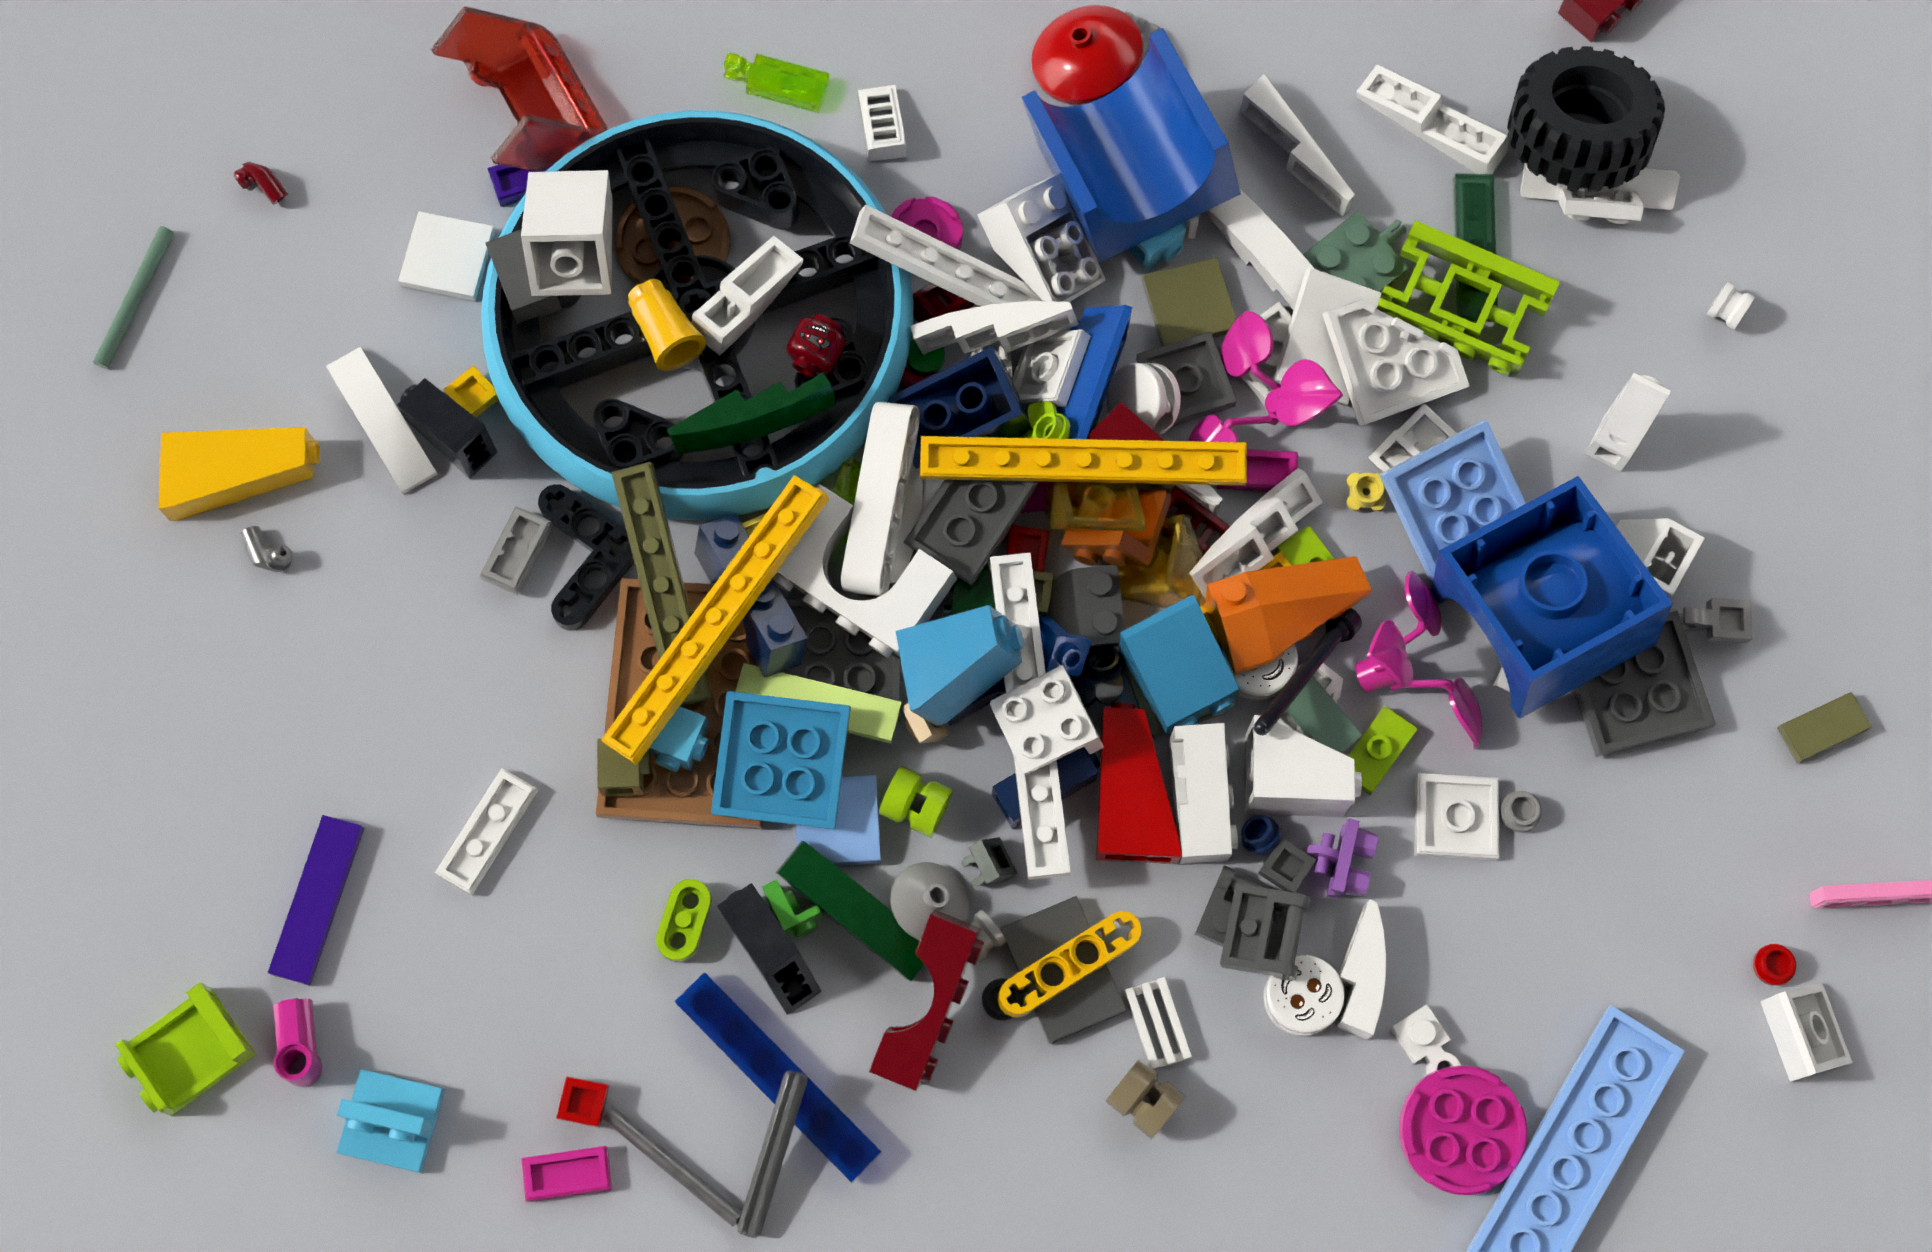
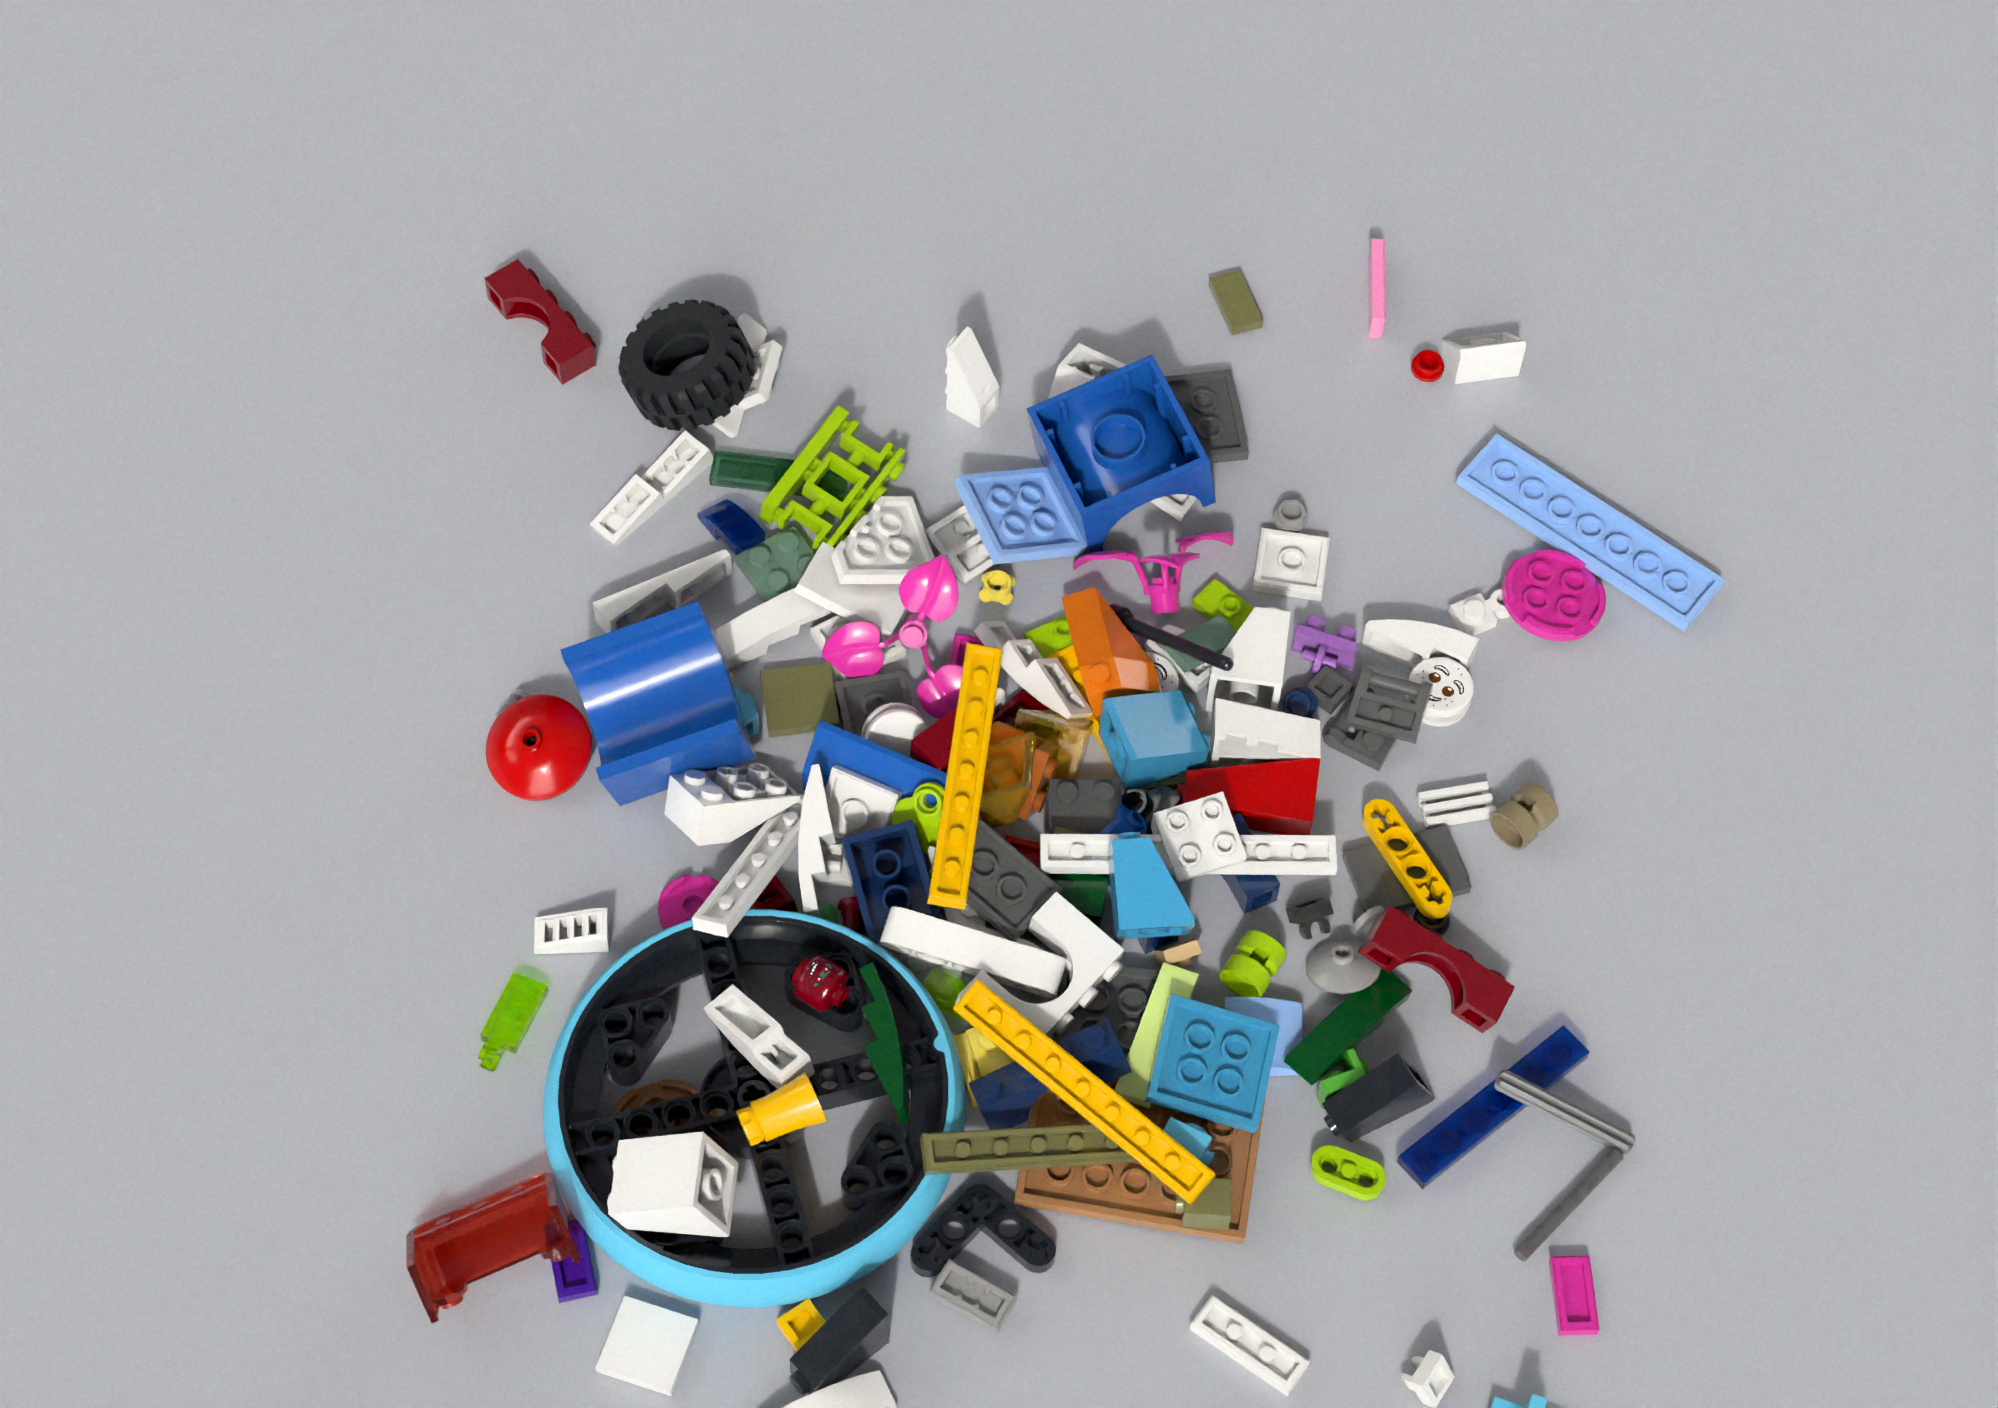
camera: 85 degrees left, 15 degrees down
(455, 1018) = (1430, 1378): none -> white tile
(511, 268) = (691, 1251): dark grey brick -> none
(583, 1102) = (1511, 1272): red plate -> none
(1392, 202) = (733, 525): none -> clear blue slope
(1723, 618) = (1140, 345): light grey plate -> none
(1730, 305) = (865, 301): white wheel -> none

